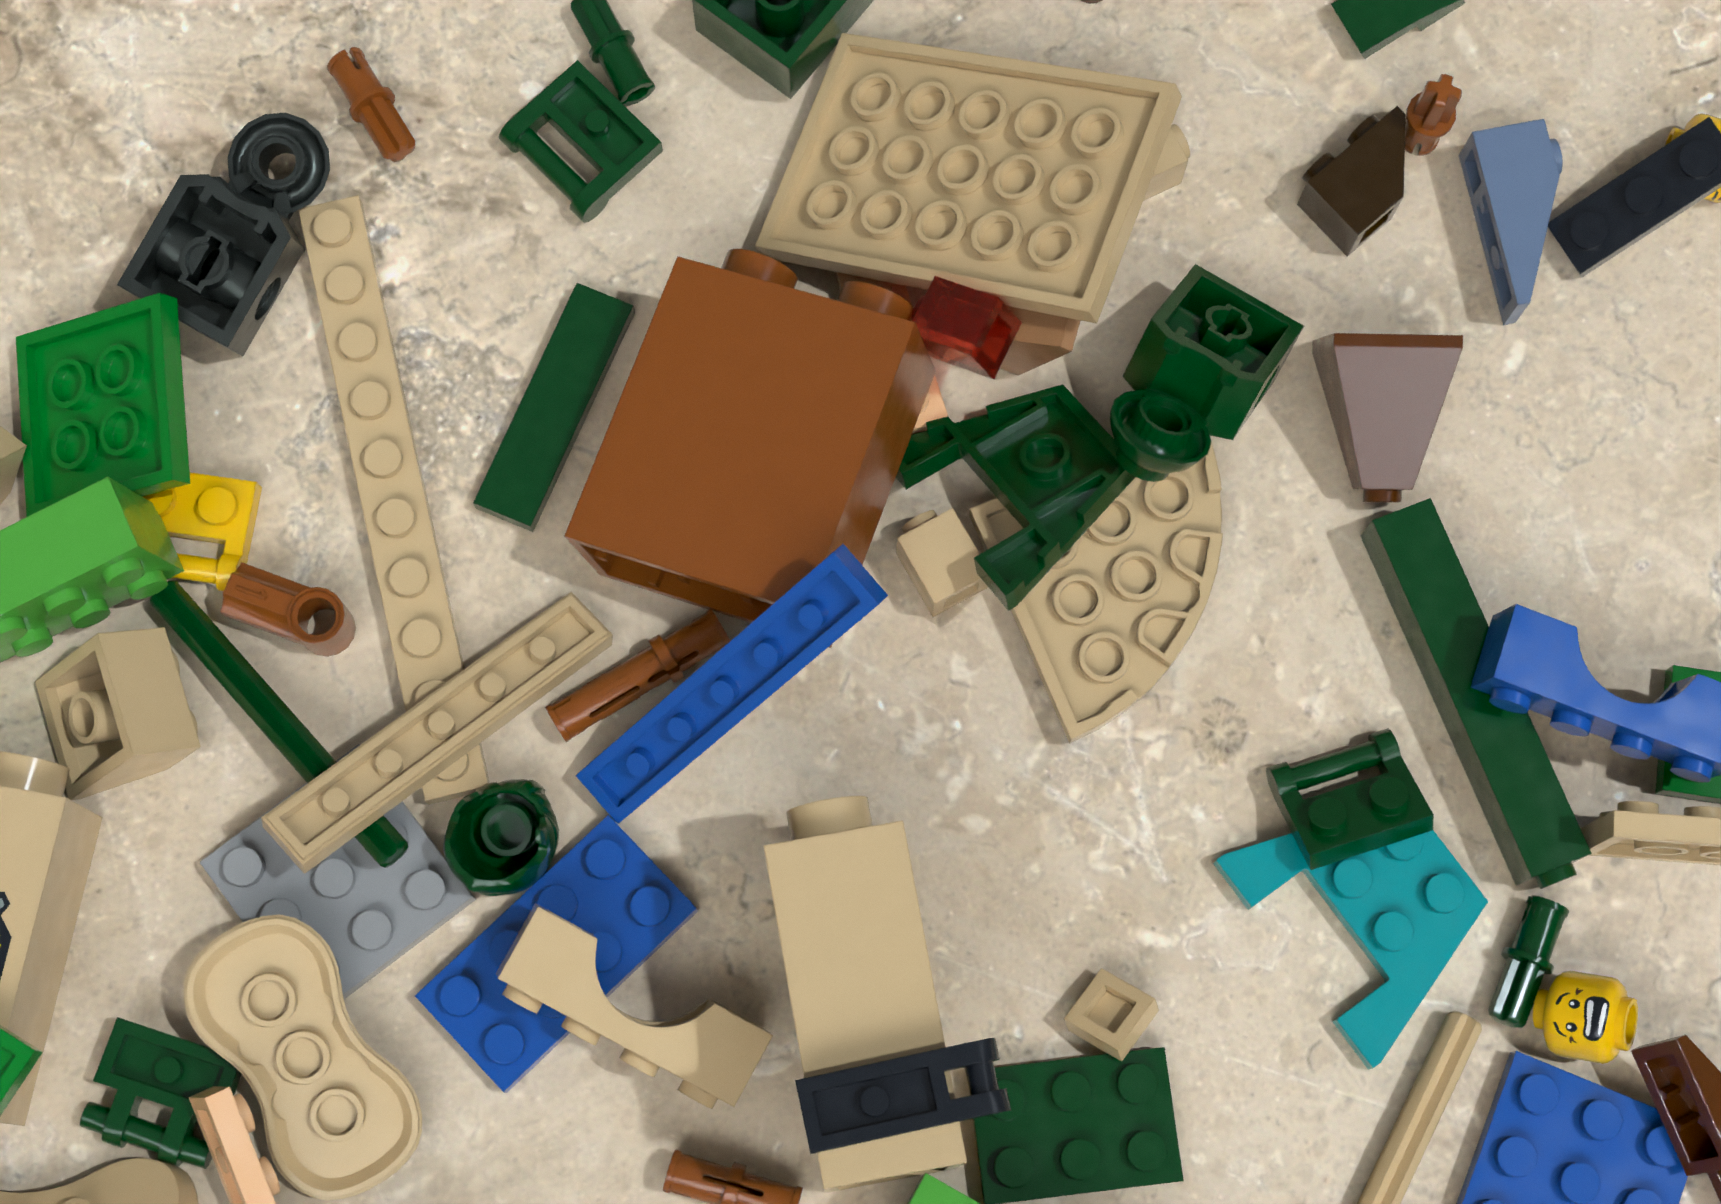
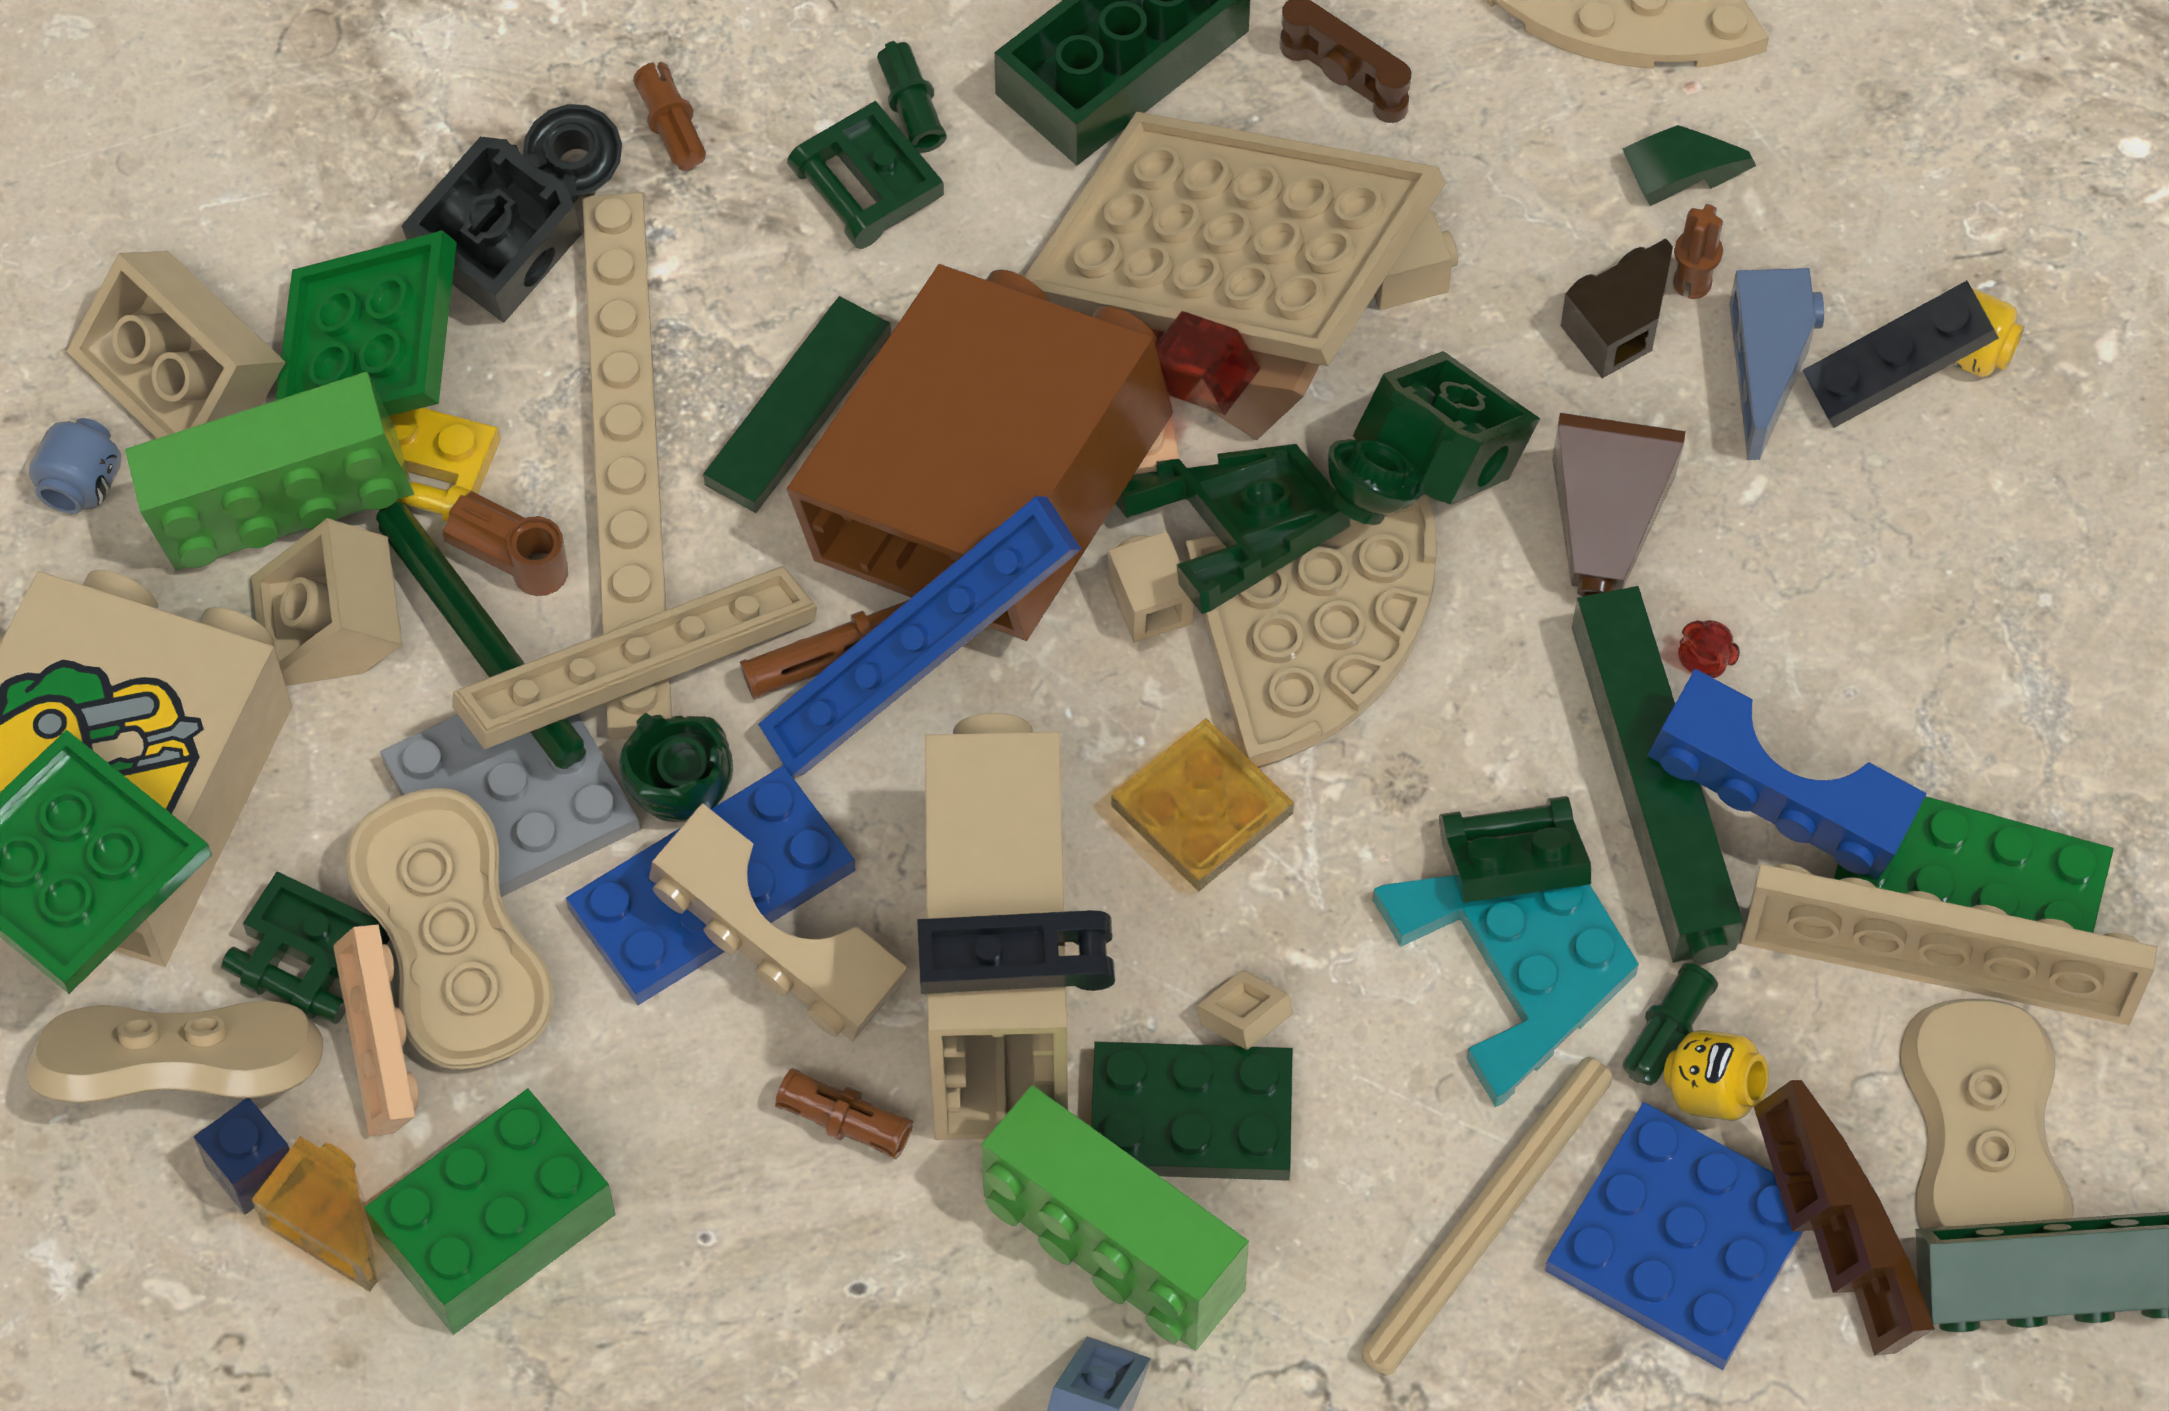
camera: 10 degrees right, 15 degrees down
(1032, 793) = (1202, 804): none -> clear yellow plate
(1501, 544) = (1707, 647): none -> clear red plate

